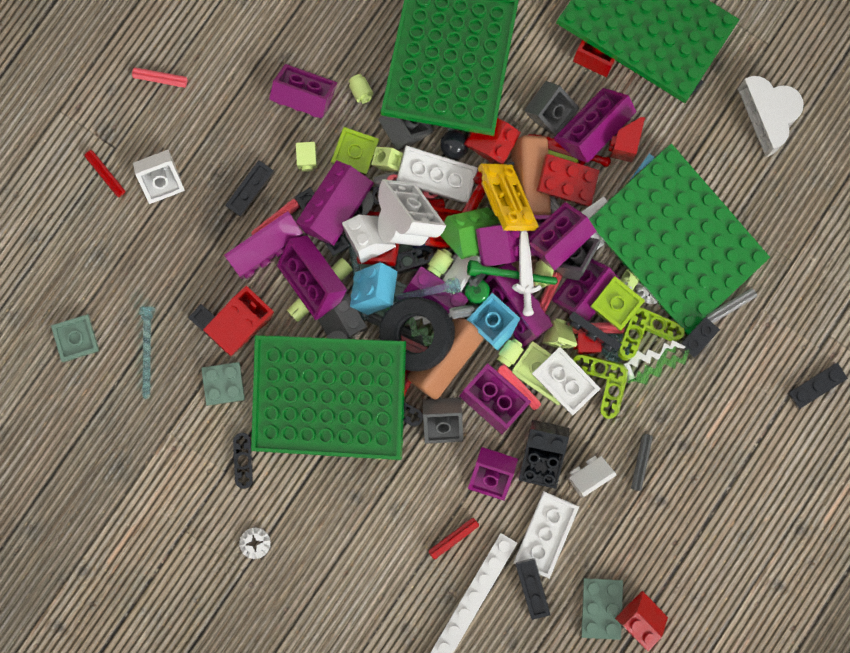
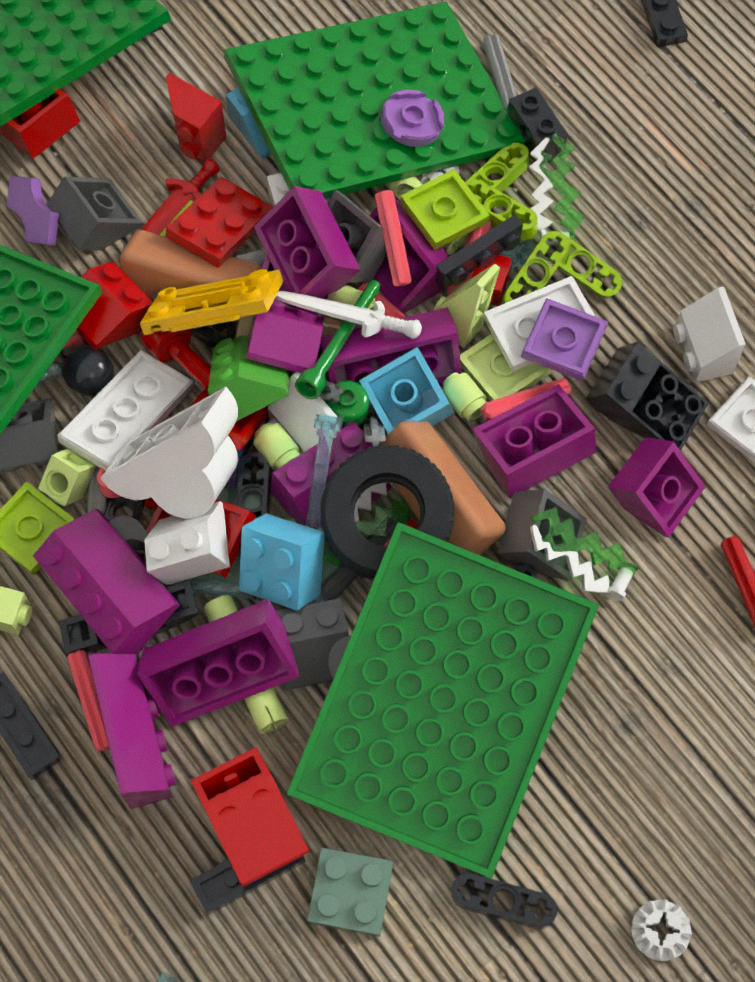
camera: 75 degrees left, 15 degrees down
(436, 437) = (570, 548): none -> piece
(534, 81) = (27, 201): none -> medium lavender tile
(557, 396) = (564, 339): none -> medium lavender tile
(586, 281) = (393, 238): none -> coral axle
(596, 124) = (147, 156): magenta slope -> none
(641, 462) = (704, 266): dark grey axle -> none
(669, 265) = (412, 118): none -> medium lavender tile

